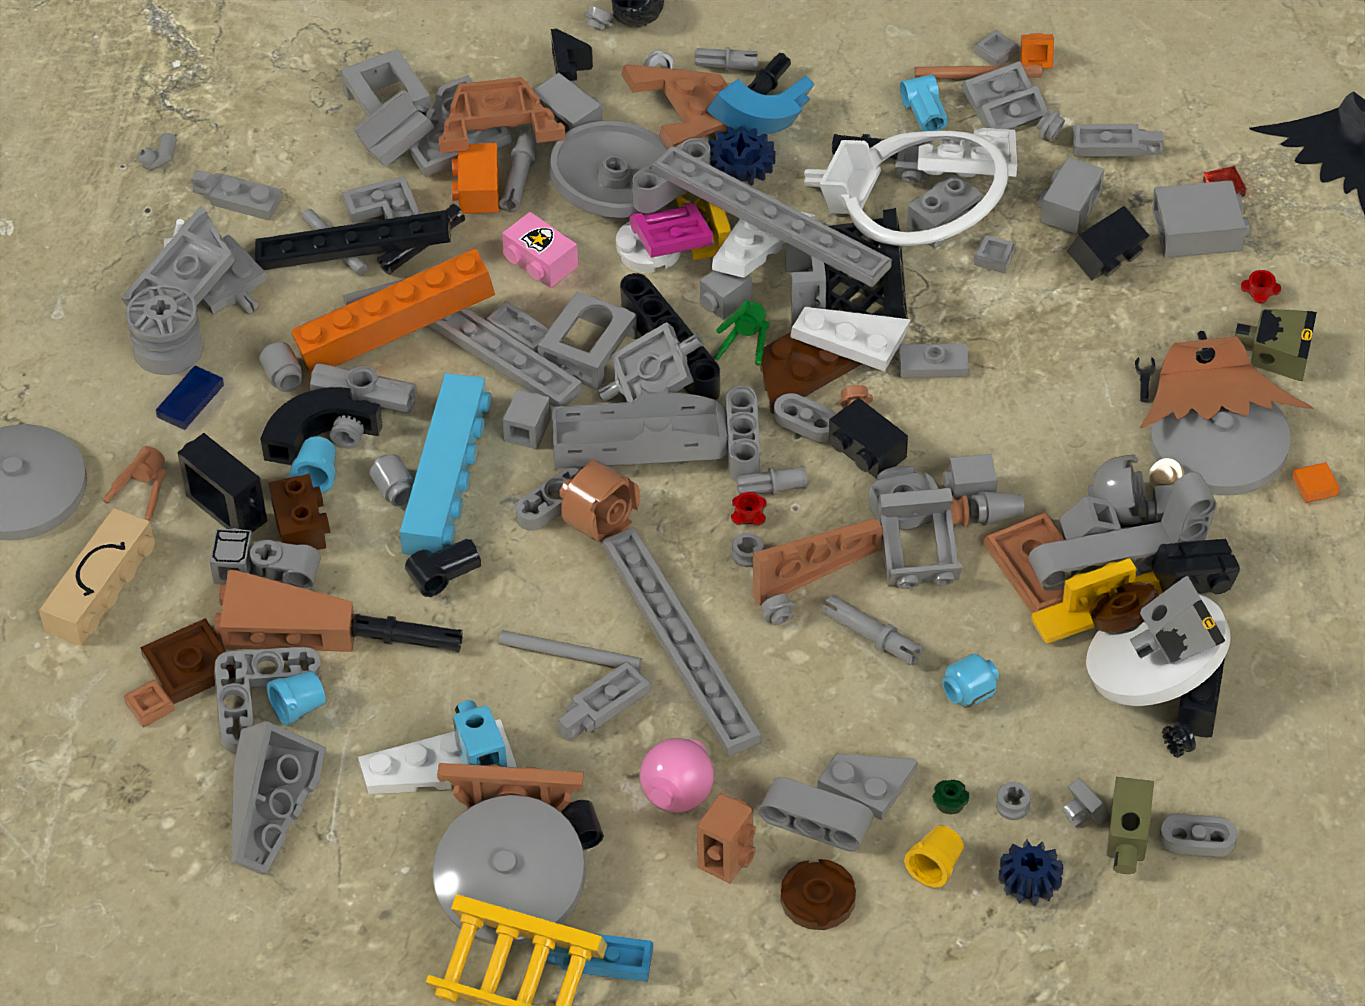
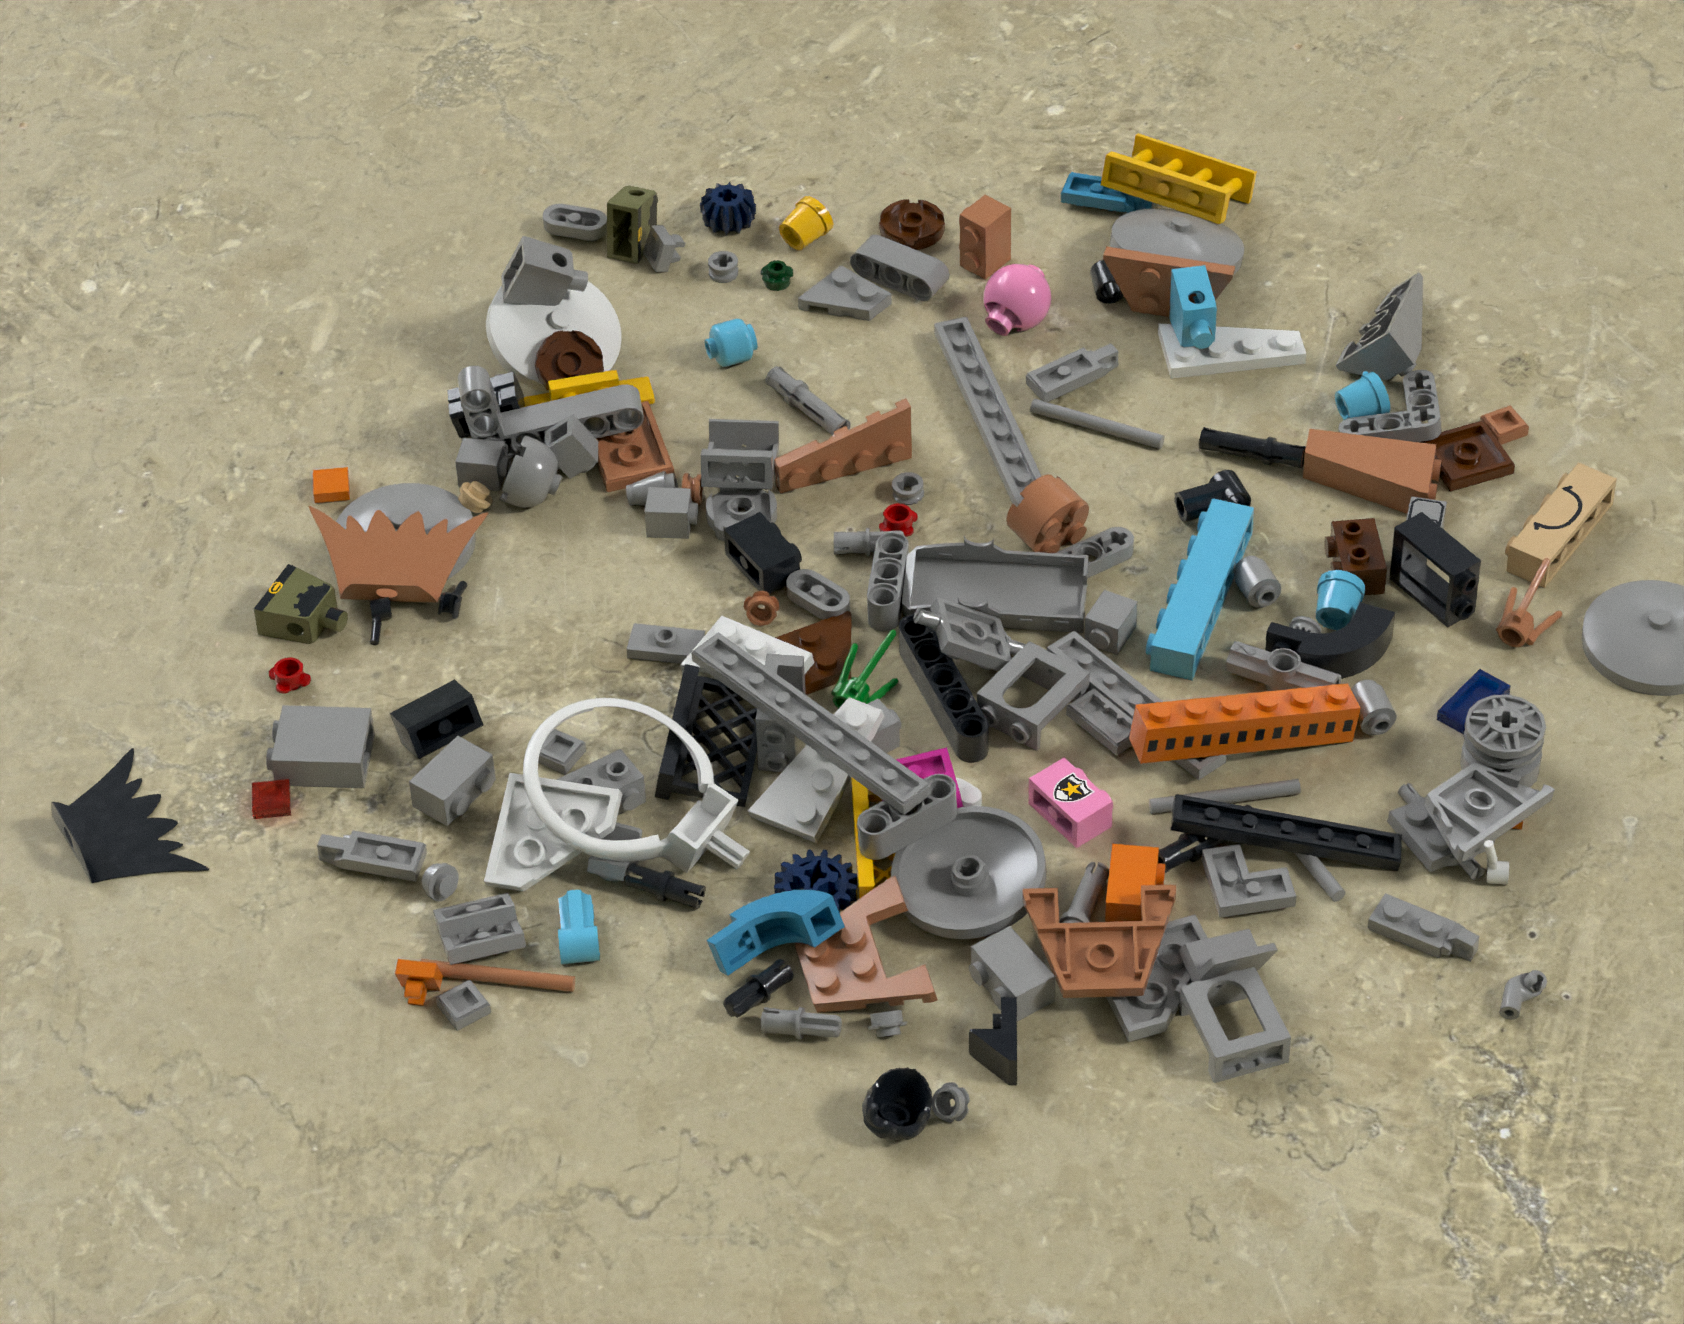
camera: 170 degrees left, 5 degrees down
(287, 564) = (1363, 504): light grey piece -> none

